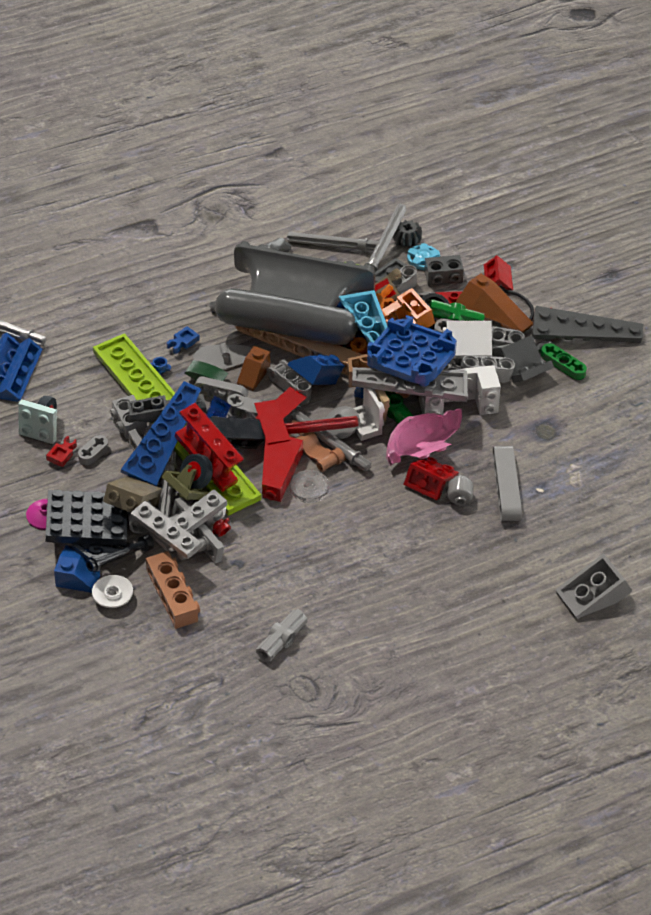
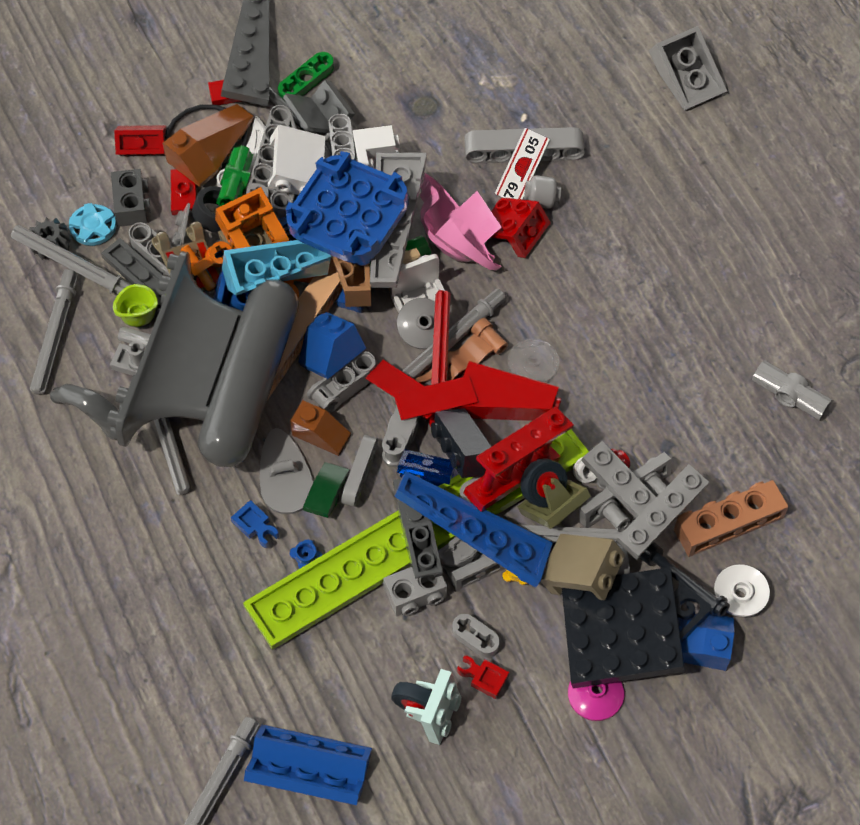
camera: 90 degrees left, 15 degrees up
(487, 478) = (522, 164): none -> white sticker

